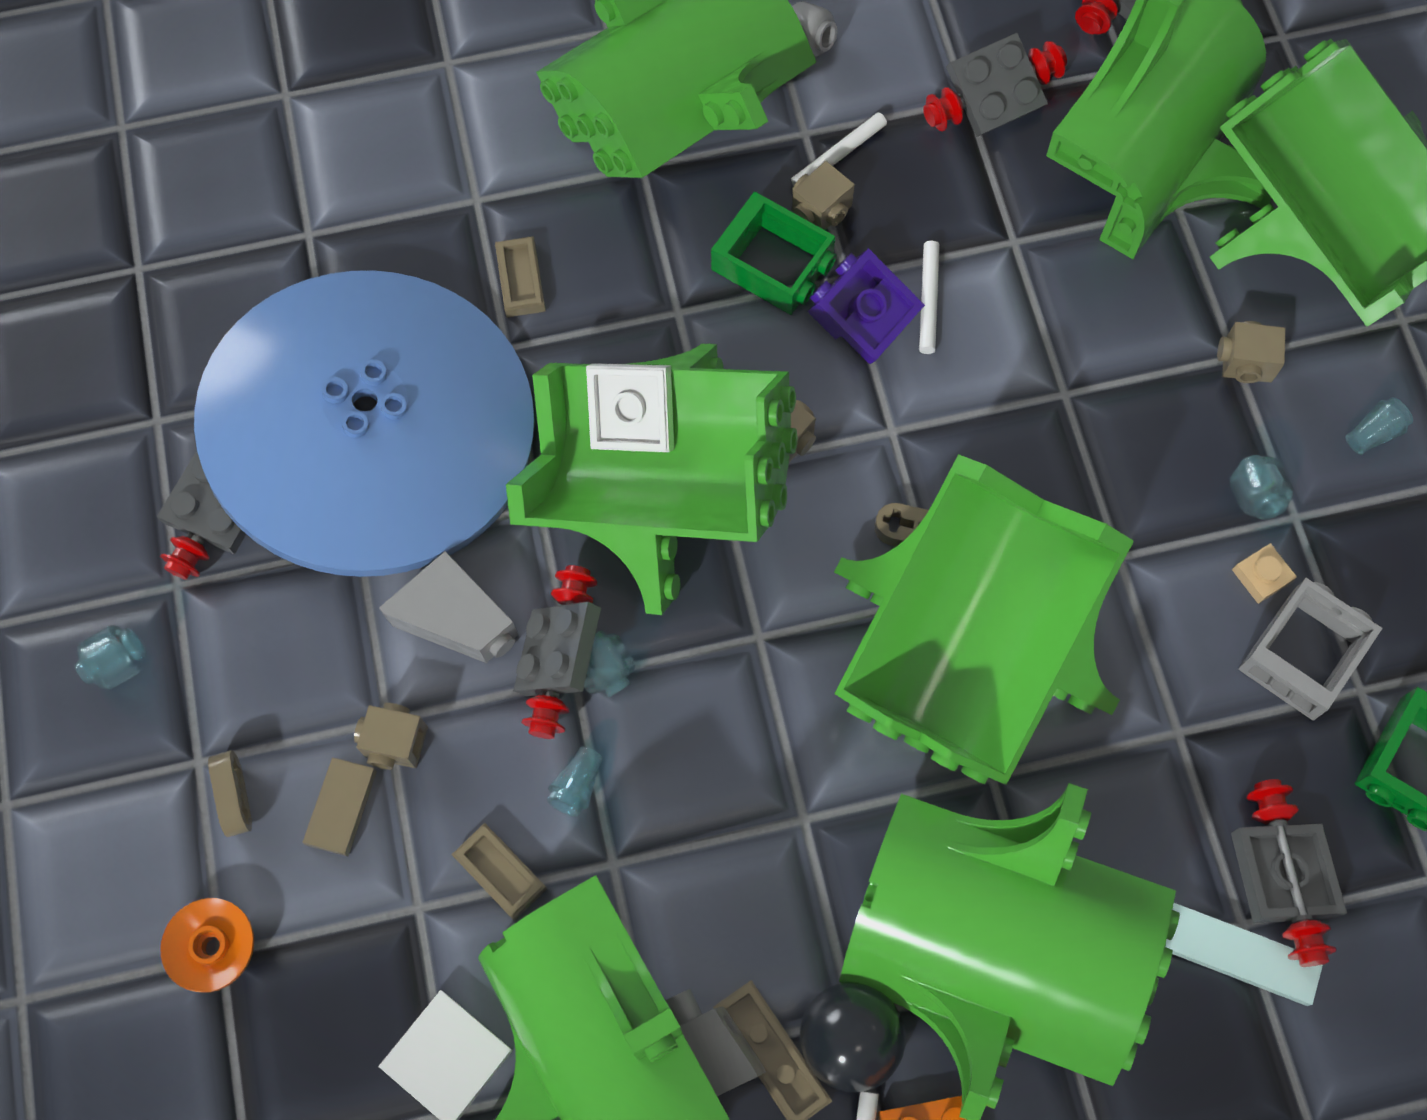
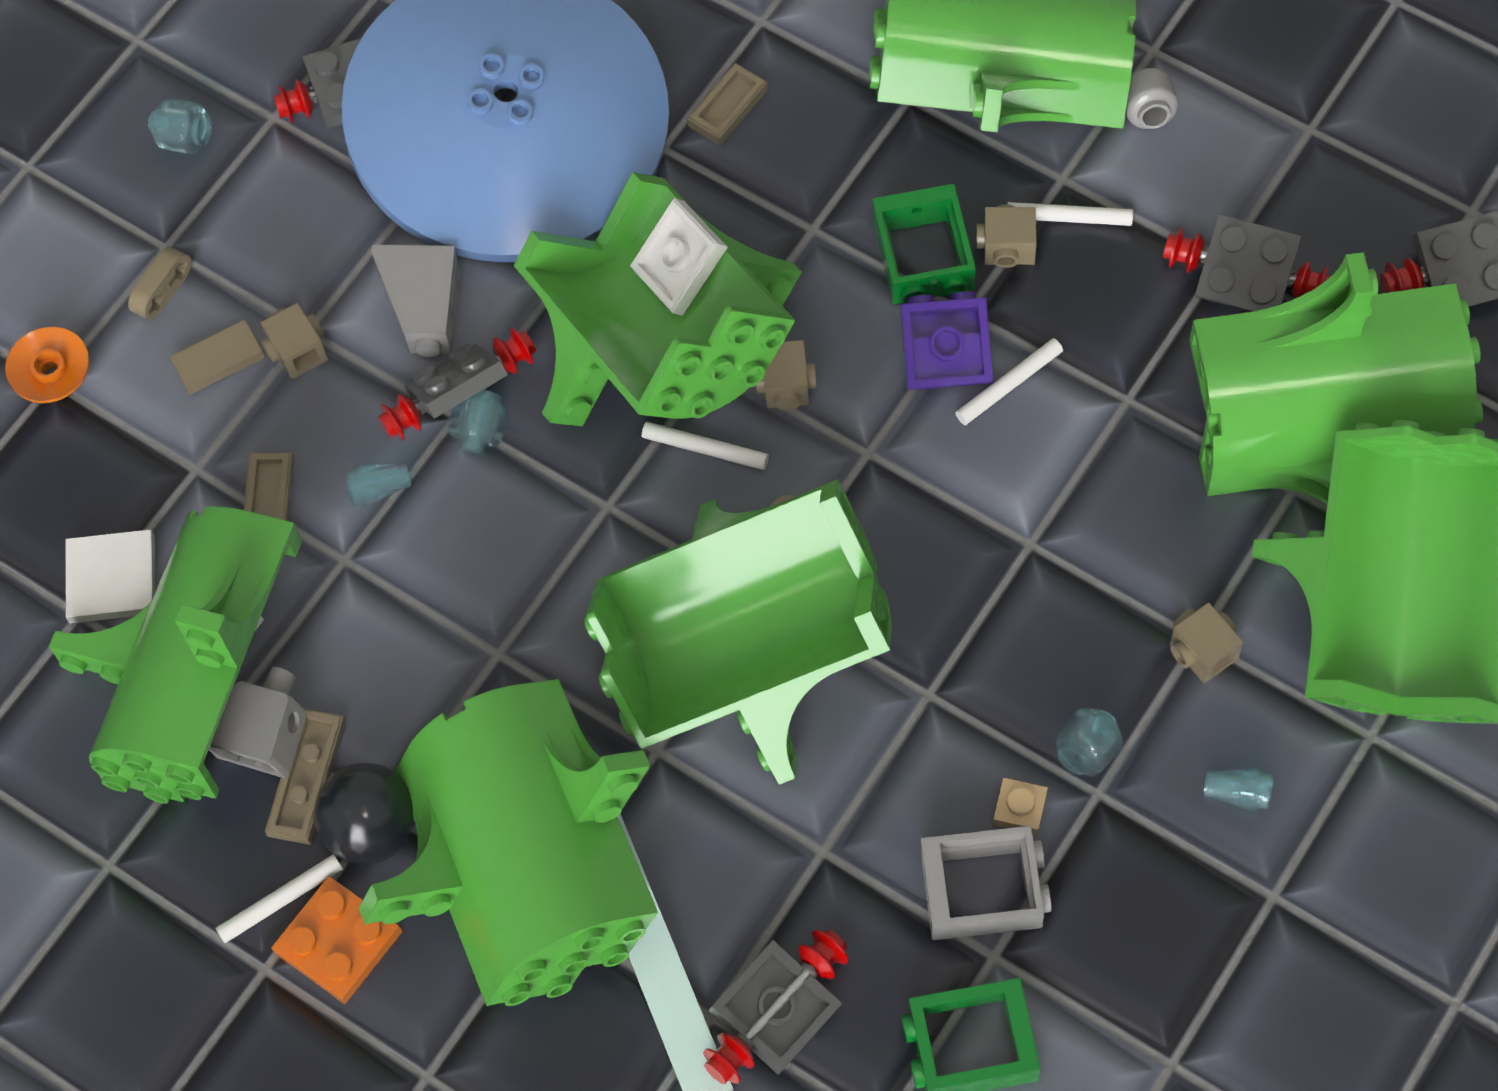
camera: 50 degrees right, 5 degrees down
(781, 528) = (705, 445): none -> white bar

